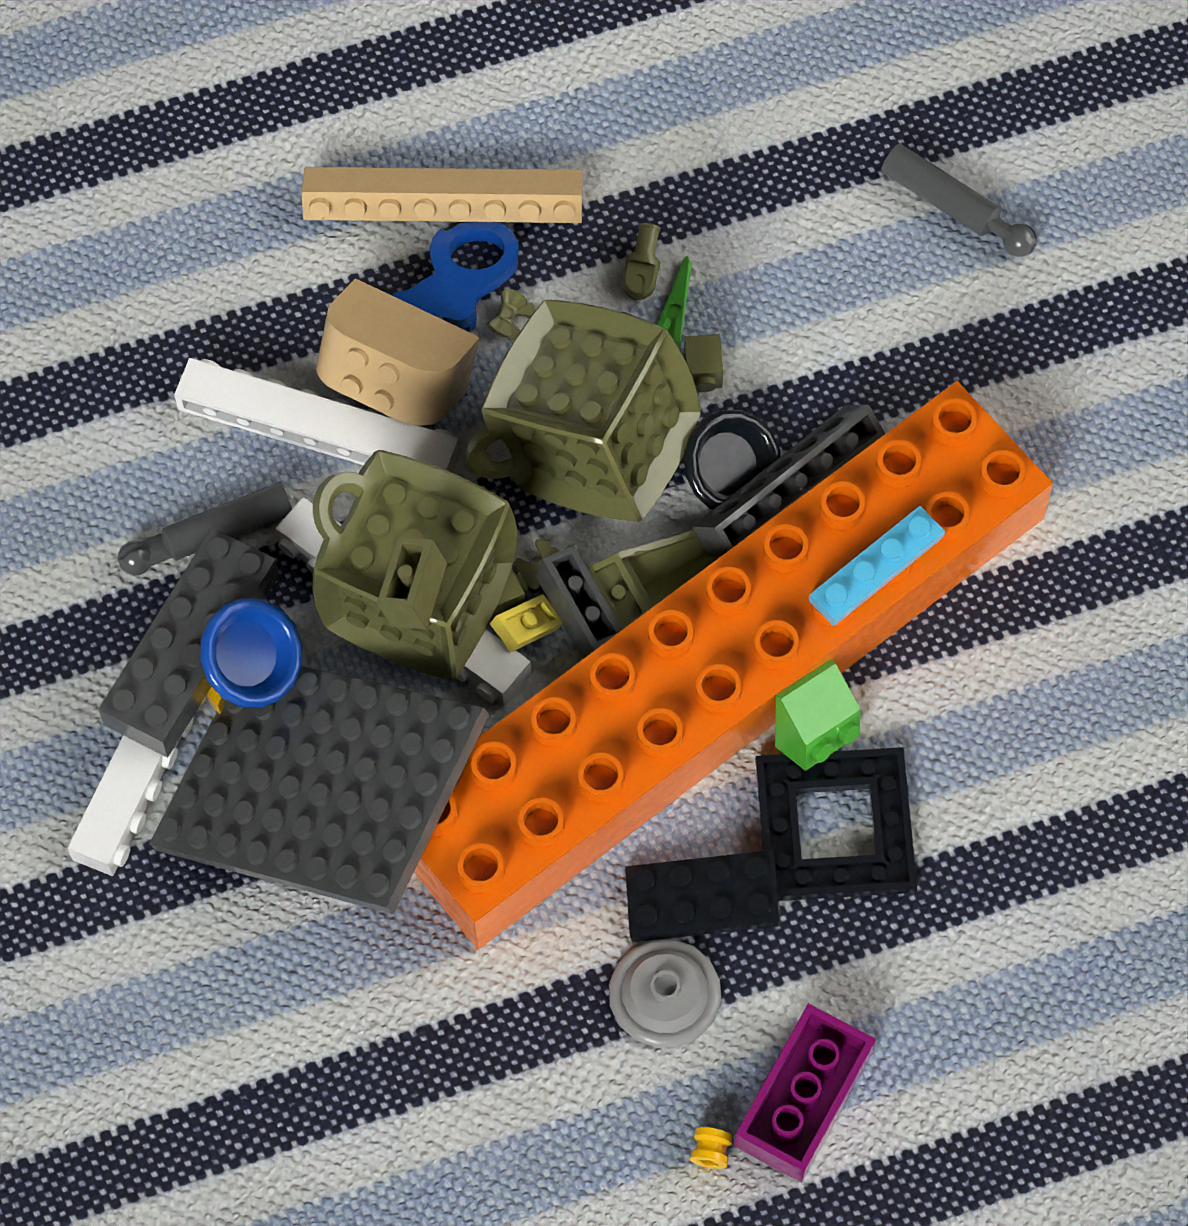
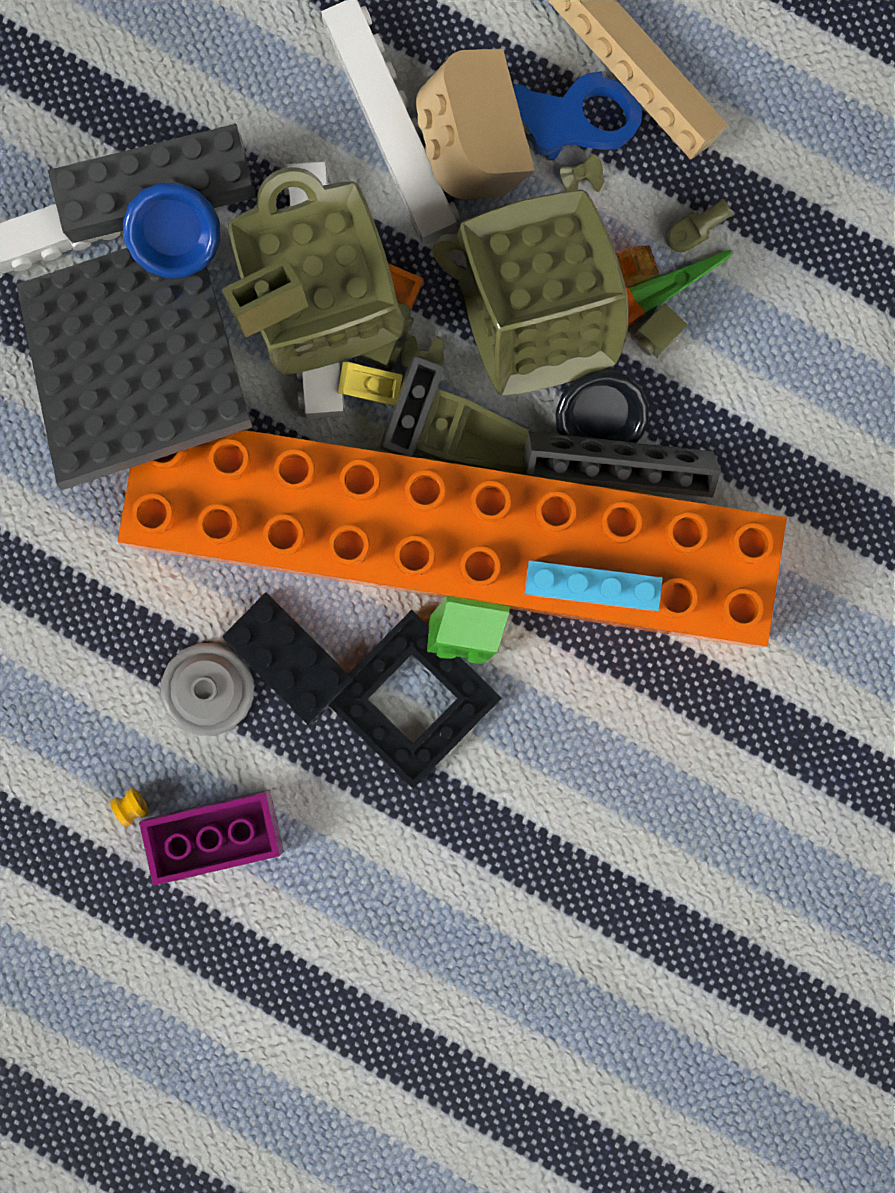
camera: 45 degrees right, 20 degrees up
(188, 534) = (253, 121): dark grey piece -> none

